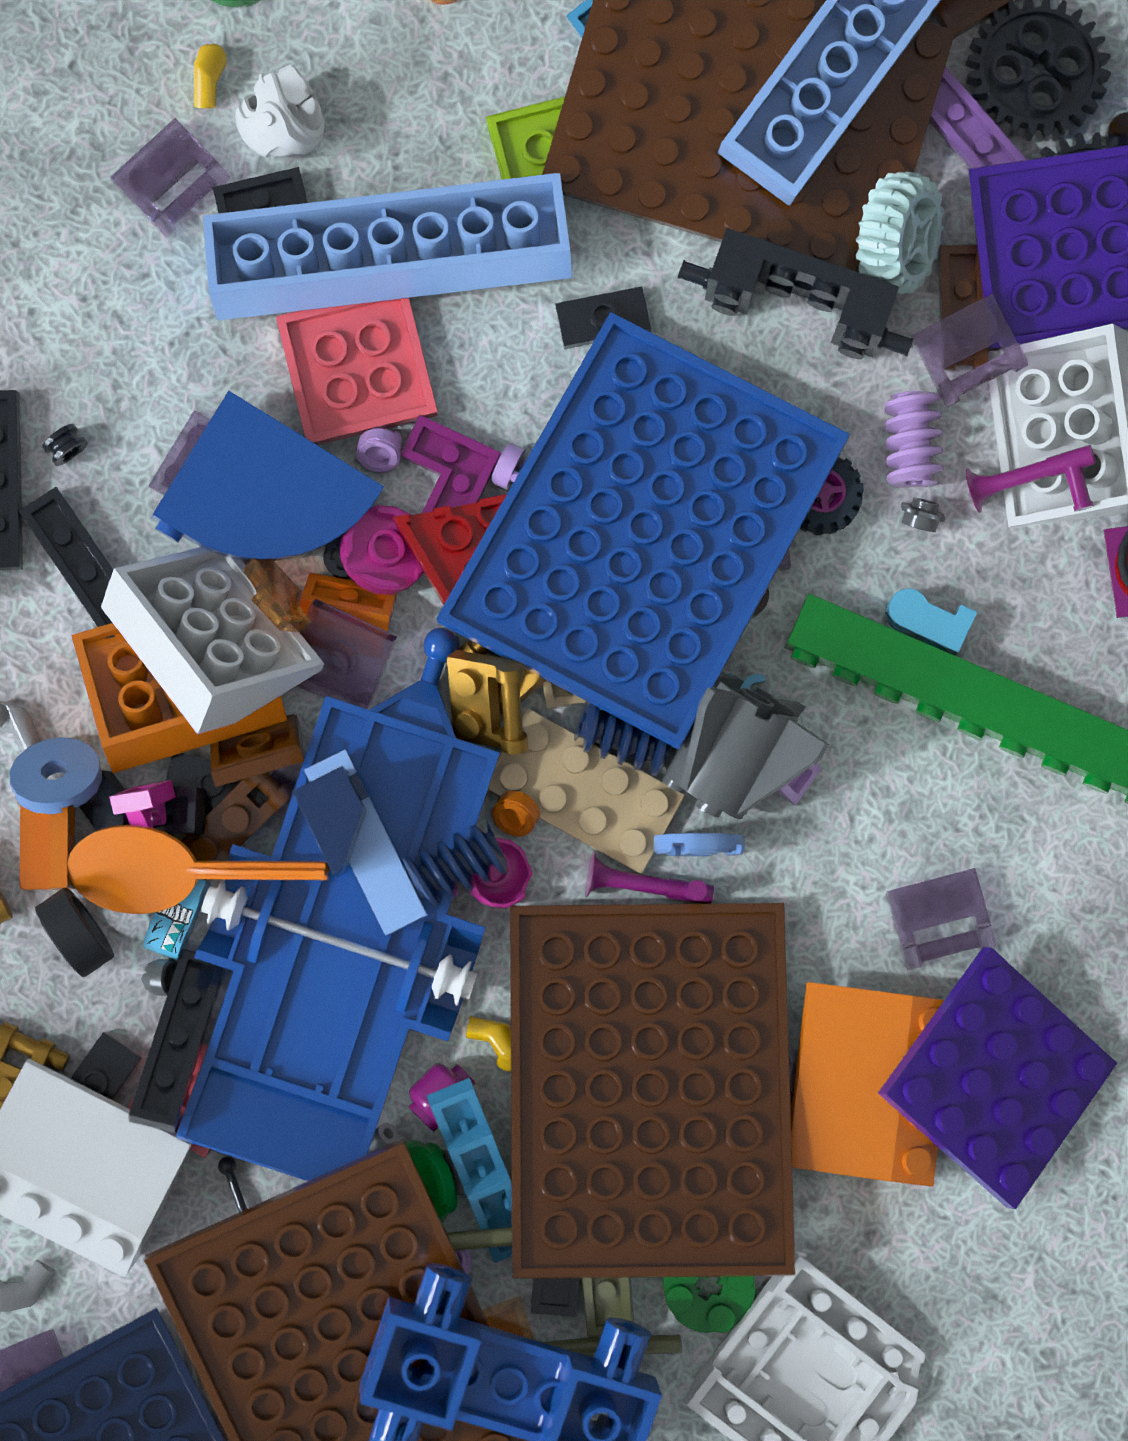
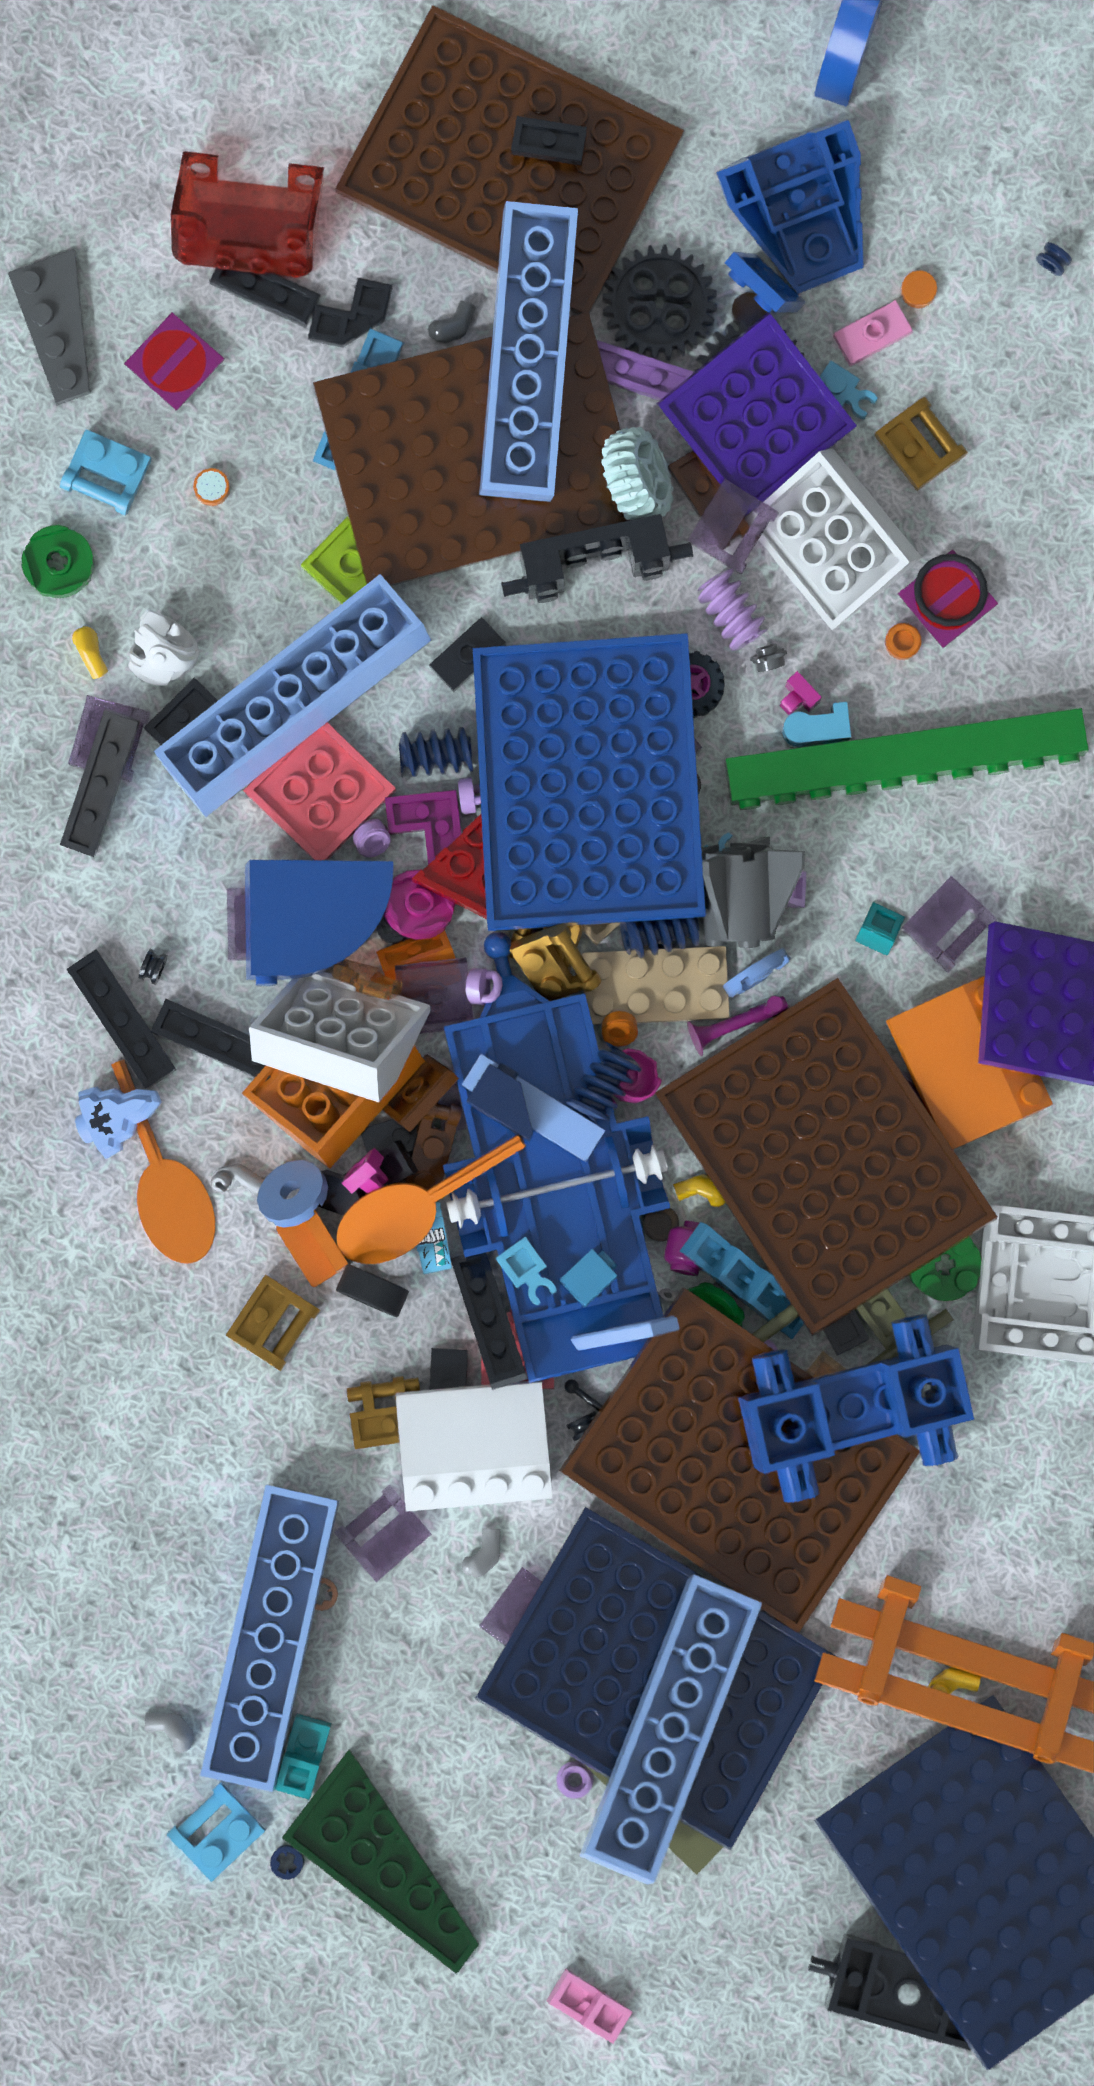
camera: 35 degrees left, 0 degrees up
(128, 215) = (100, 782): none -> black plate
(159, 976) = (446, 1287): dark grey hinge -> none
(209, 1215) = (580, 1425): none -> black bush
(248, 1006) = (523, 1266): none -> medium azure plate
(310, 1152) = (626, 1333): none -> light blue tile
(311, 1063) = (590, 1277): none -> dark azure brick
(392, 676) = (479, 986): none -> lavender tile
(429, 1050) = (658, 1224): none -> dark brown tile
(503, 399) = (435, 752): none -> dark blue piece
(863, 877) = (880, 928): none -> teal slope
(933, 574) = (800, 693): none -> dark pink tile
(1070, 462) = (846, 563): magenta piece -> none
(1078, 584) = (903, 641): none -> orange tile

